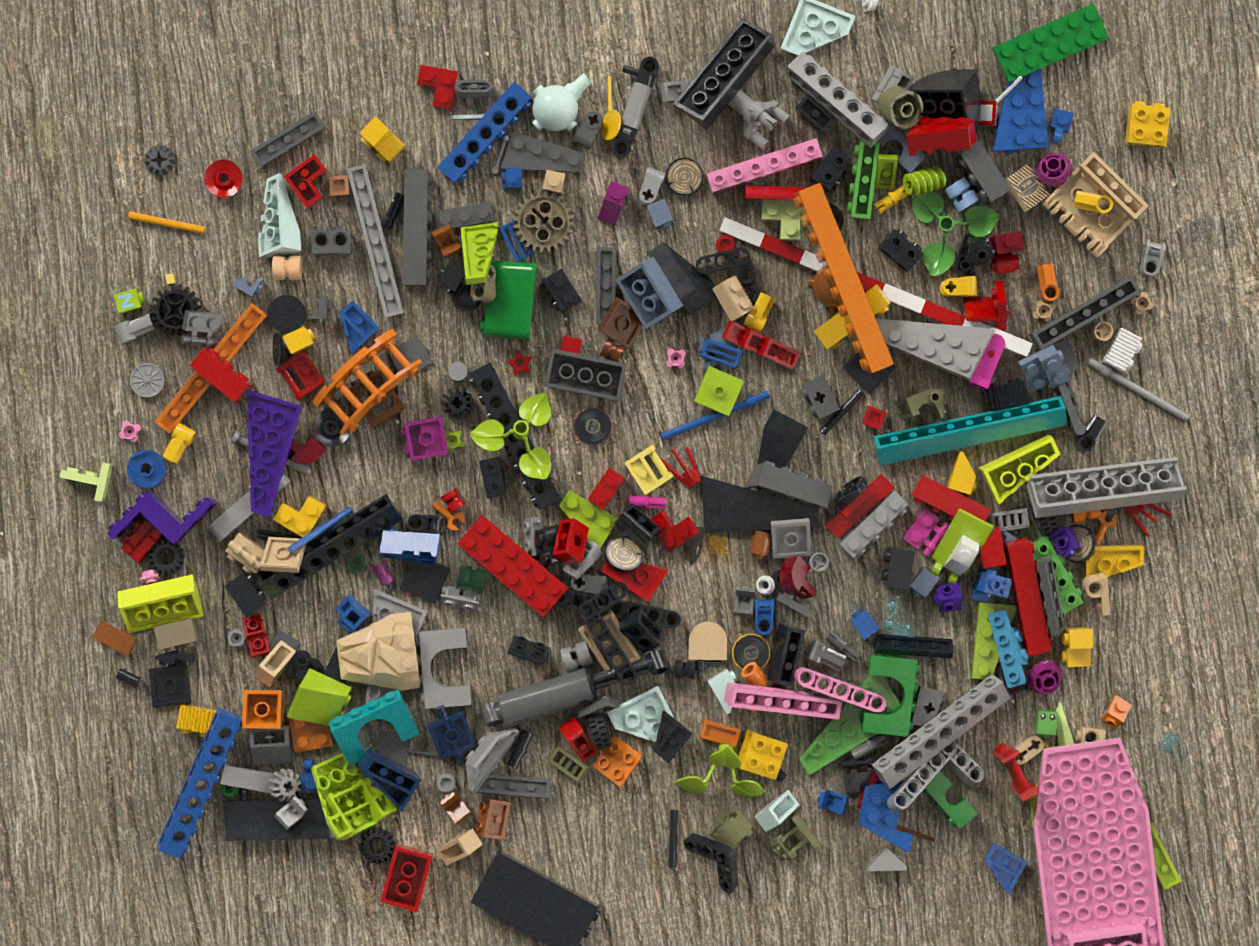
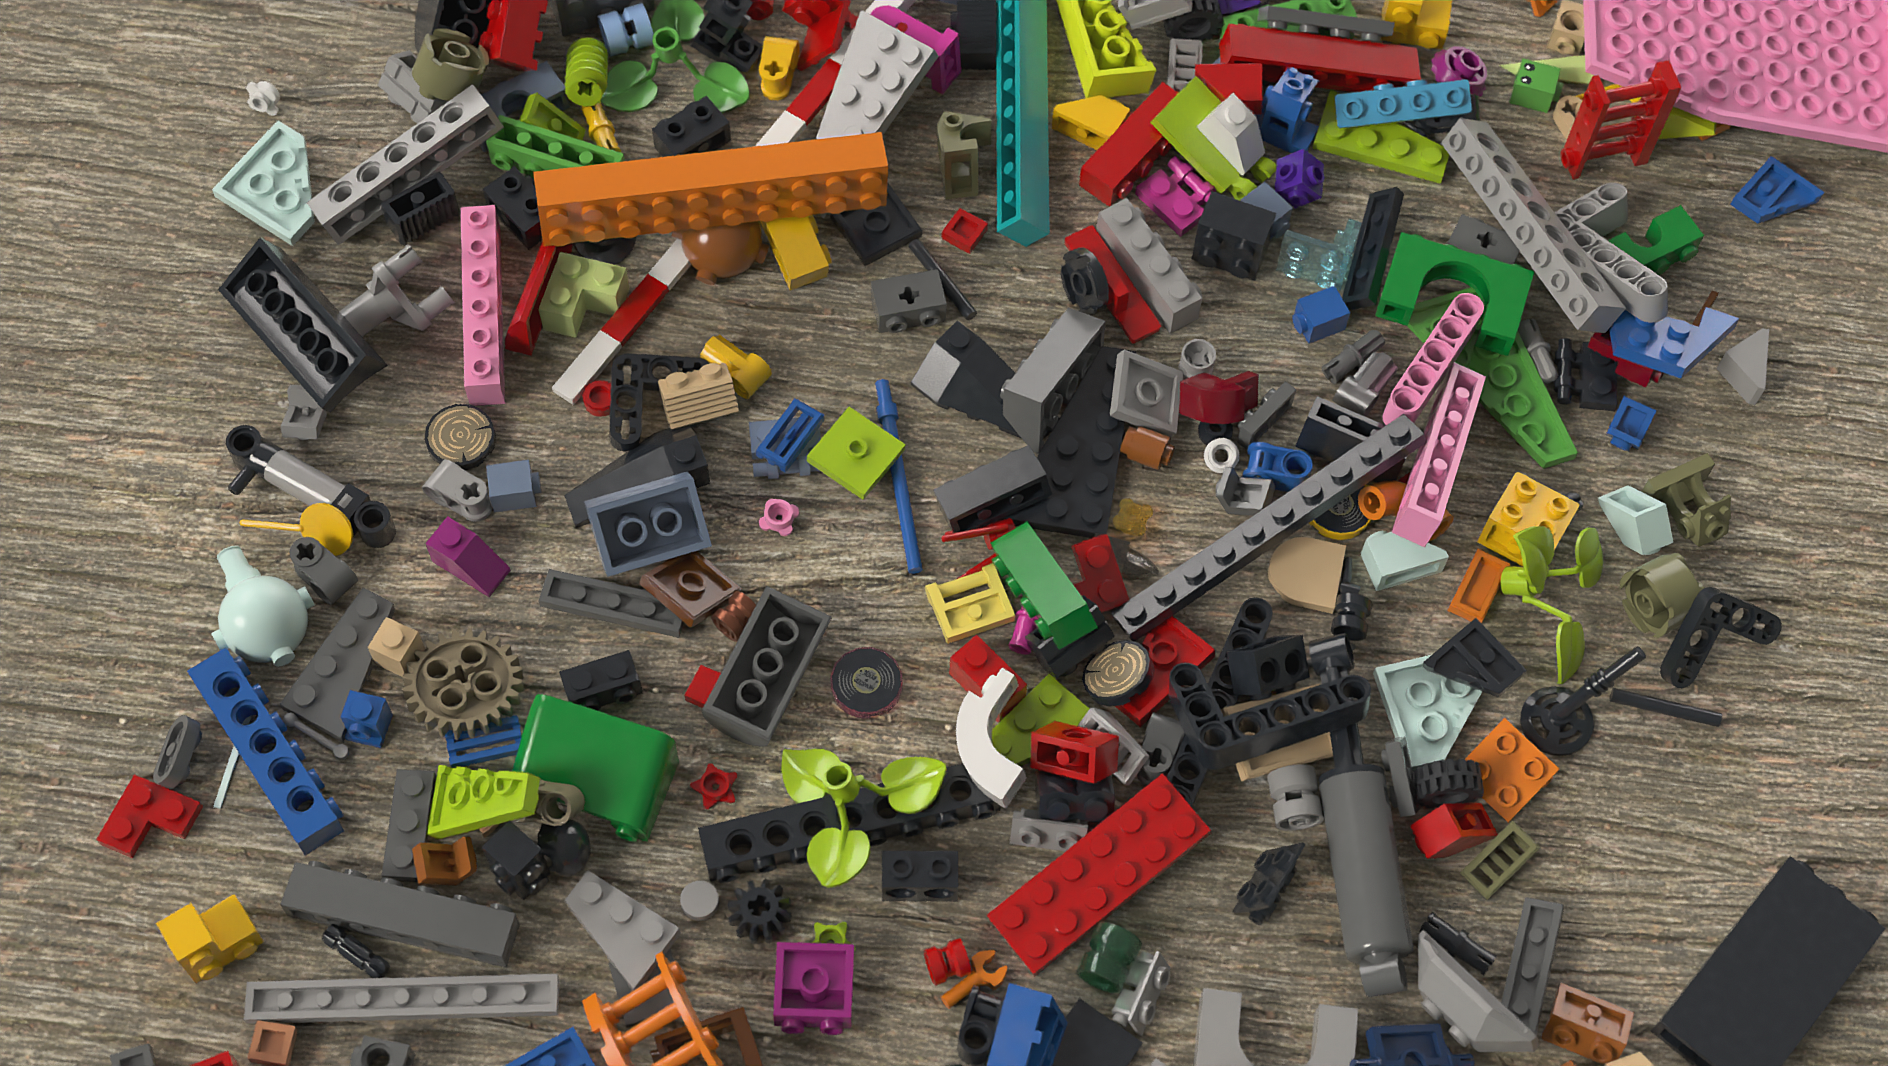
camera: 80 degrees left, 25 degrees down
(434, 337) = (621, 927): none -> light grey wing
(558, 492) = (986, 766): none -> white arch
(656, 787) = (1568, 702): none -> black dish
(658, 506) = (1043, 586): none -> brick
(712, 468) = (993, 491): none -> brick
(721, 618) = (1268, 527): none -> plate
(761, 345) = (792, 375): red slope -> none

